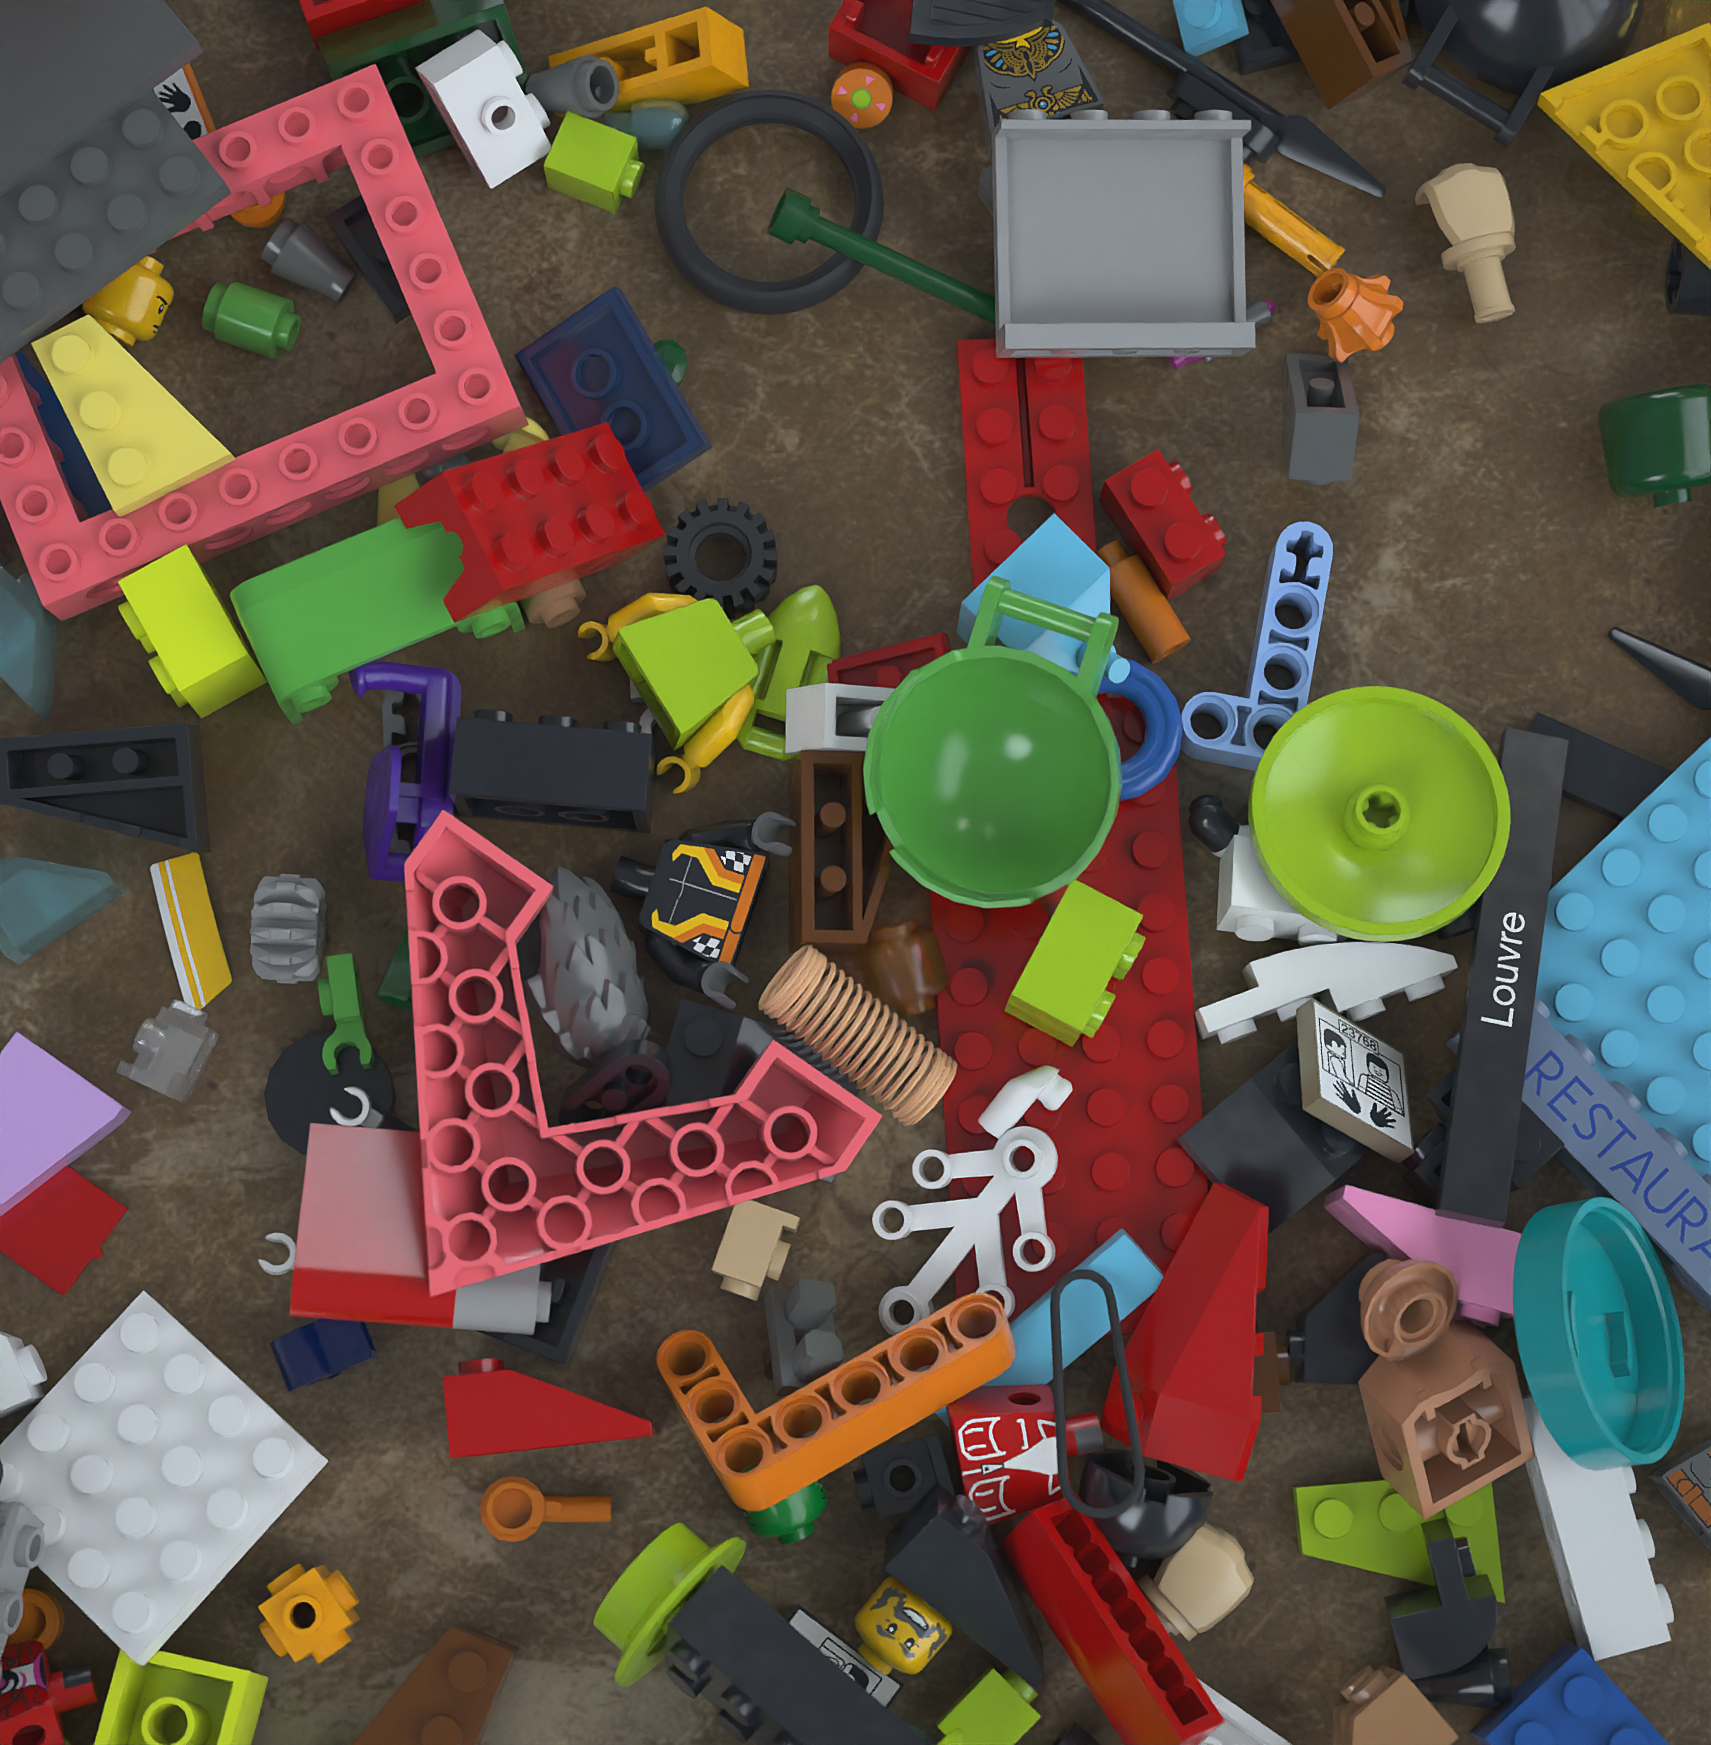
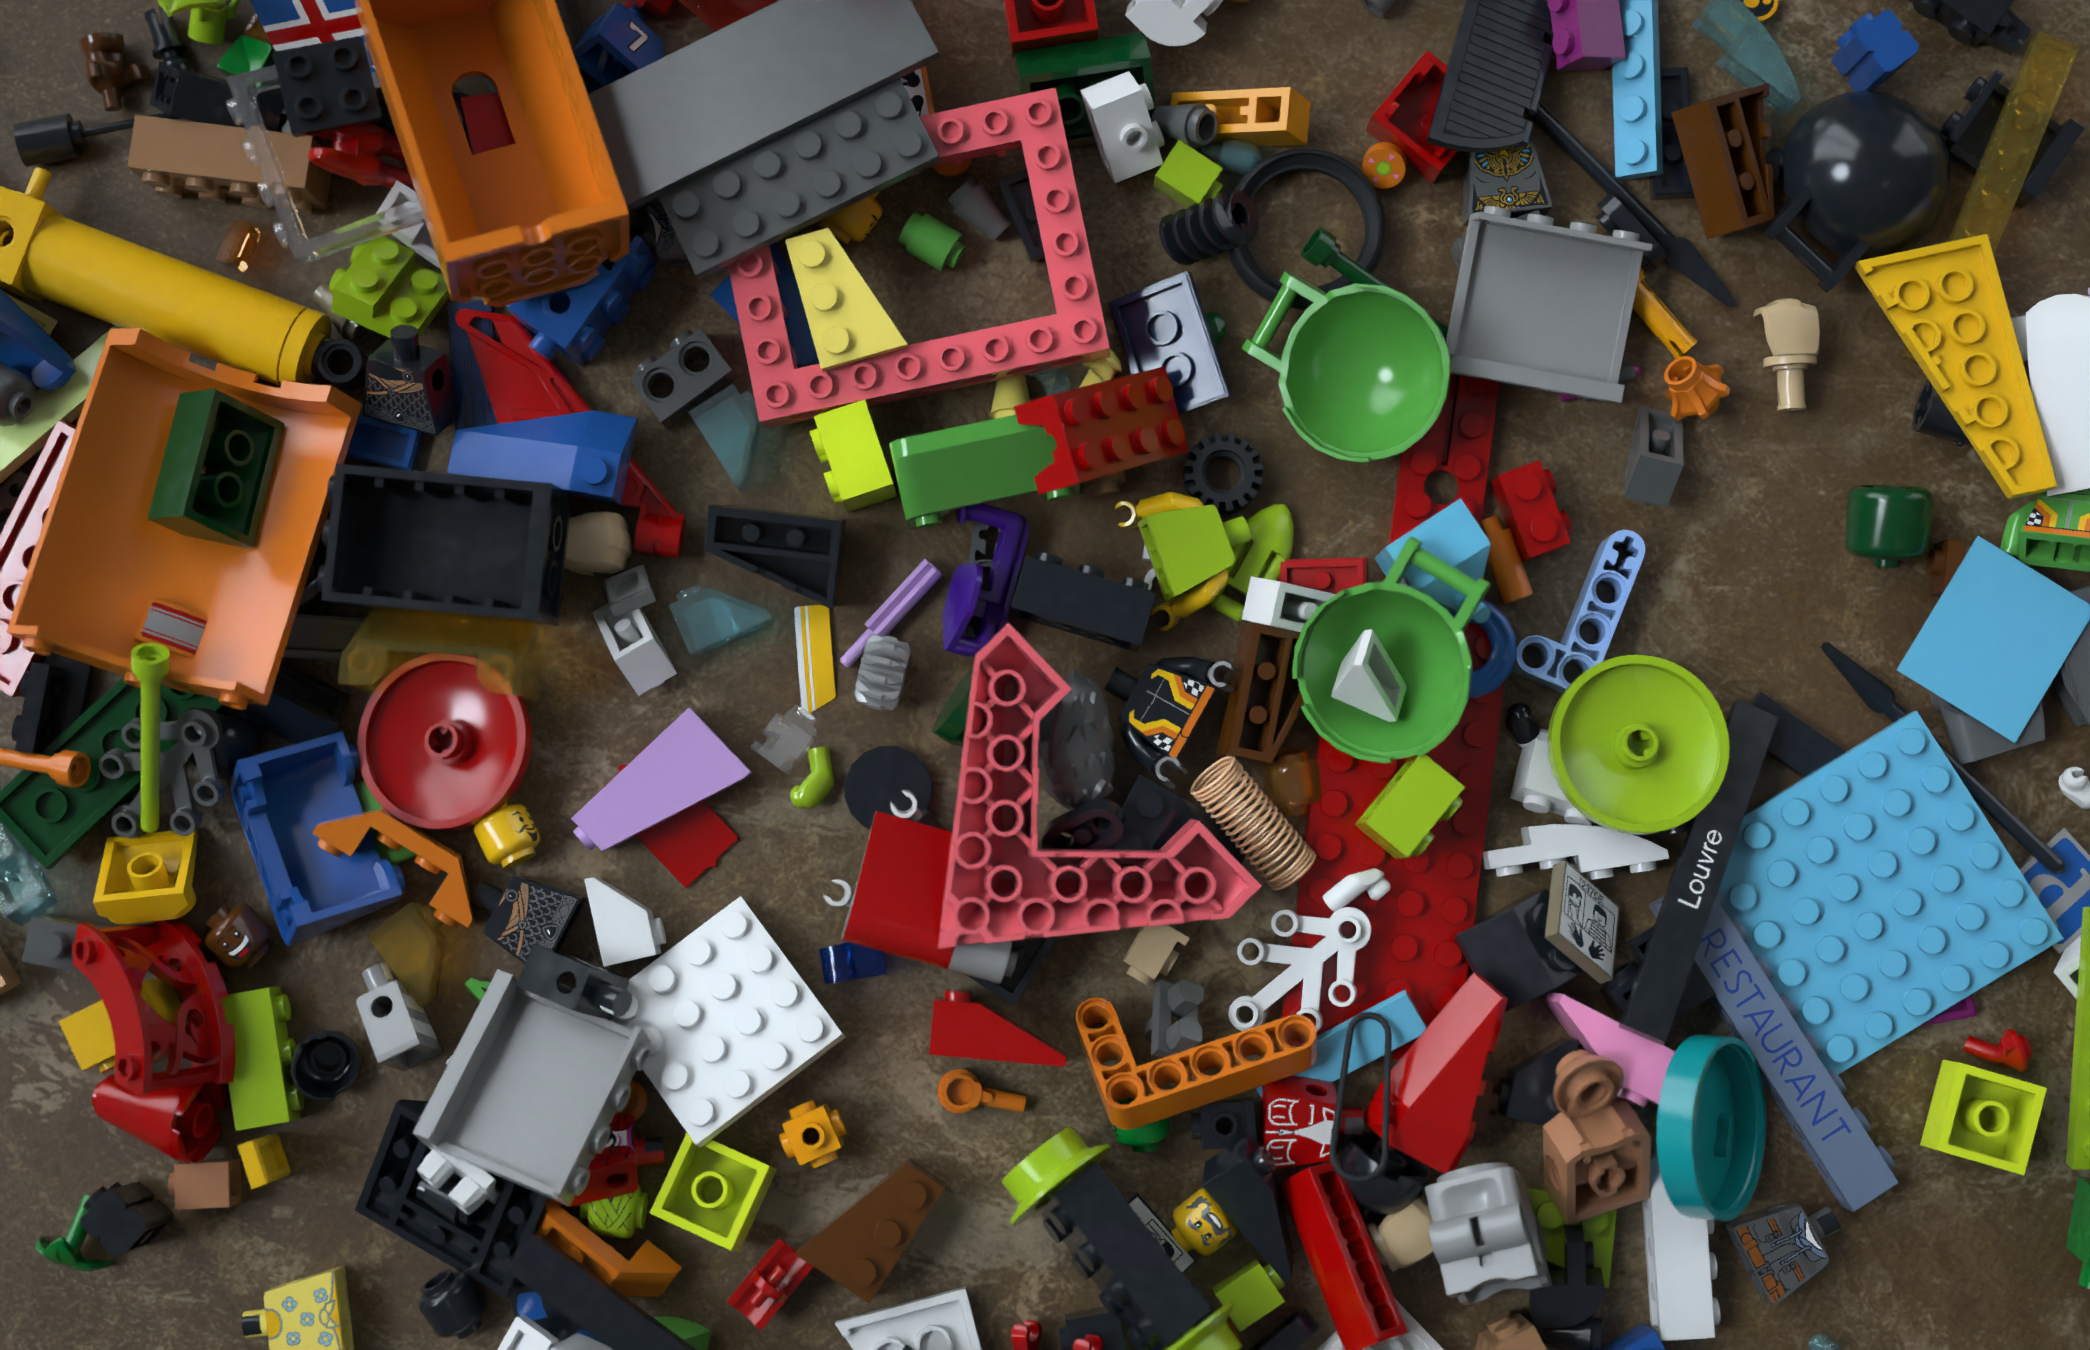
camera: 10 degrees right, 5 degrees up
(227, 1105) = (817, 783): none -> lime arm
(294, 833) = (895, 608): none -> lavender axle
(343, 998) = (909, 725): bright green plate -> none
(632, 220) = (1209, 227): none -> black piece
(877, 369) = (1357, 368): none -> bright green windscreen
(981, 794) = (1370, 679): none -> white slope
(1309, 1554) = (1486, 1233): none -> light grey piece

